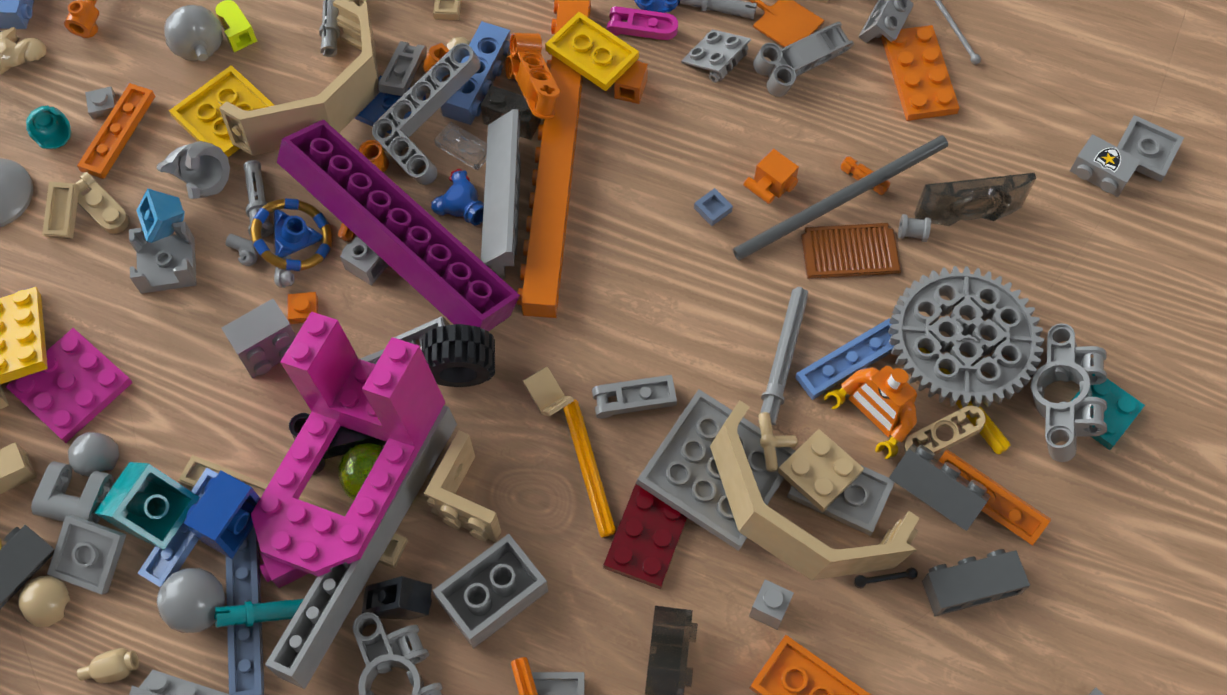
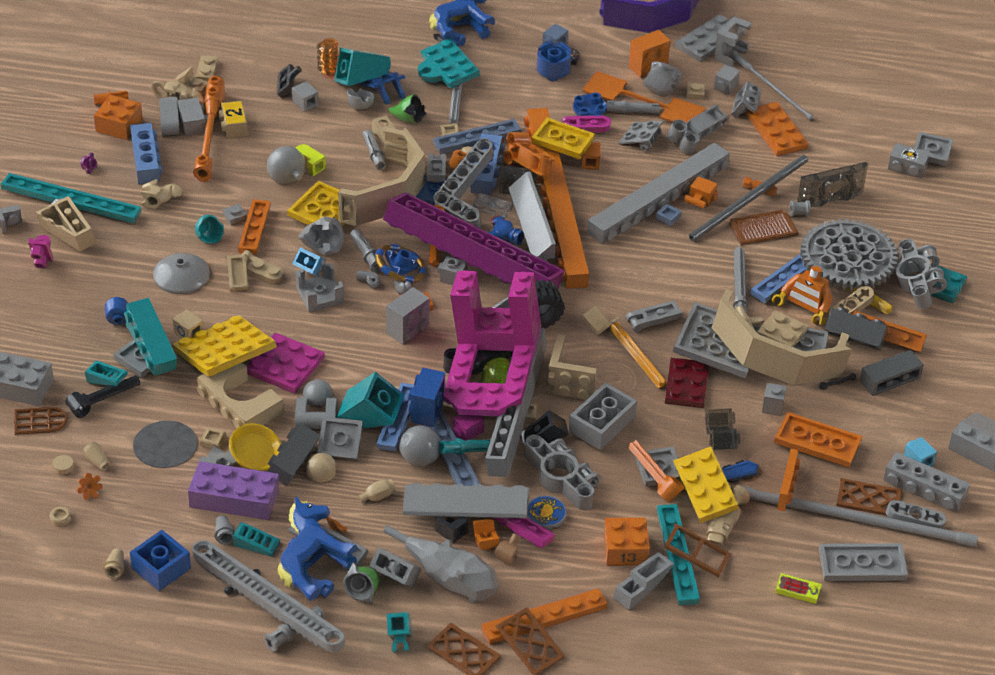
camera: 15 degrees left, 20 degrees down
(466, 22) = (470, 137): none -> sand blue plate
(707, 166) = (657, 193): none -> light grey brick

